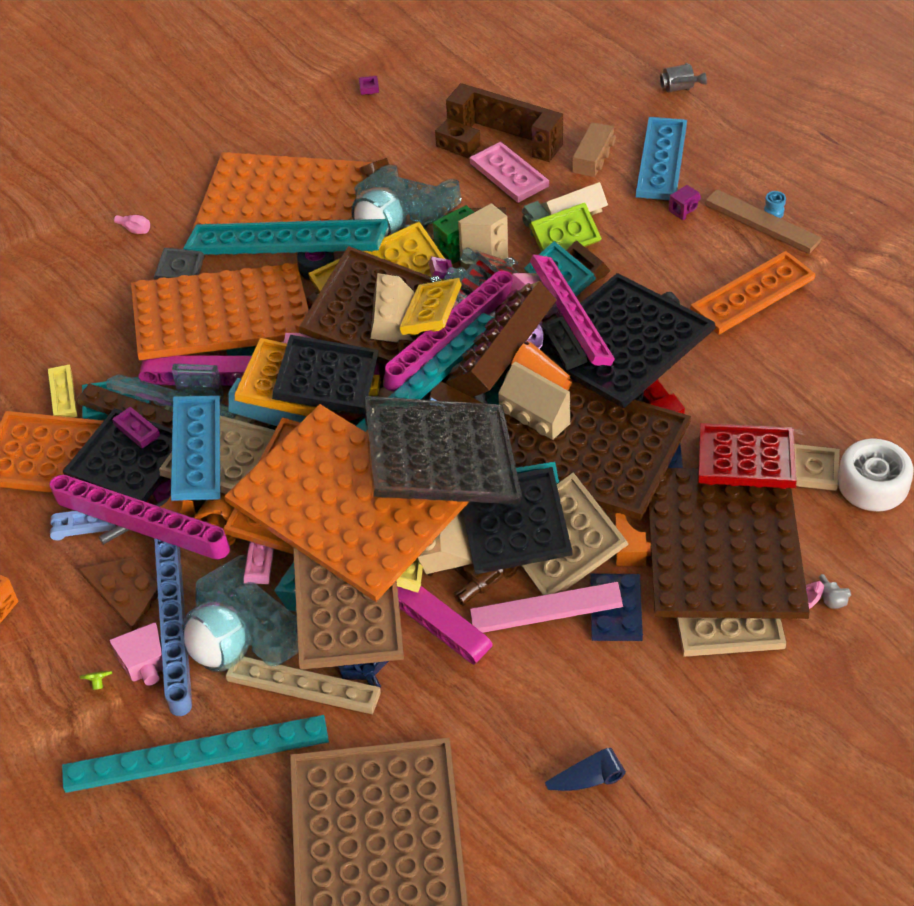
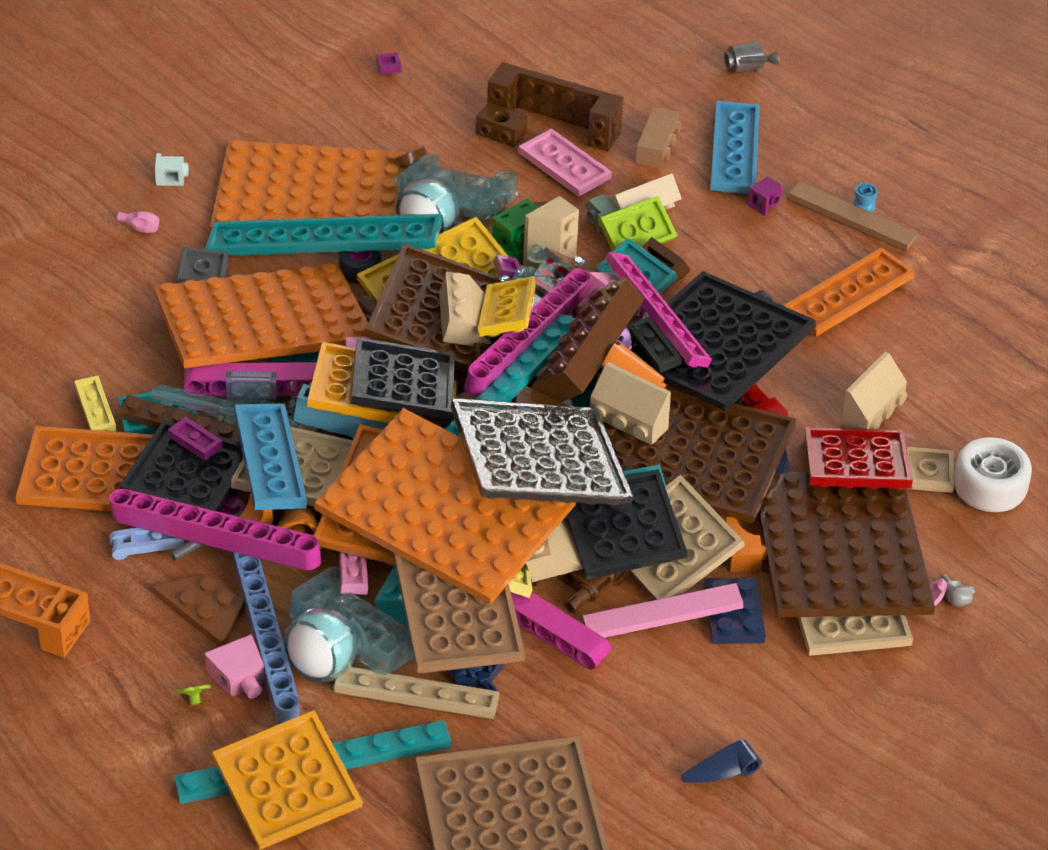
camera: 10 degrees left, 5 degrees down
(163, 776) = (287, 779): none -> light orange plate
(167, 178) = (170, 170): none -> light aqua brick
(767, 393) = (874, 395): none -> tan slope

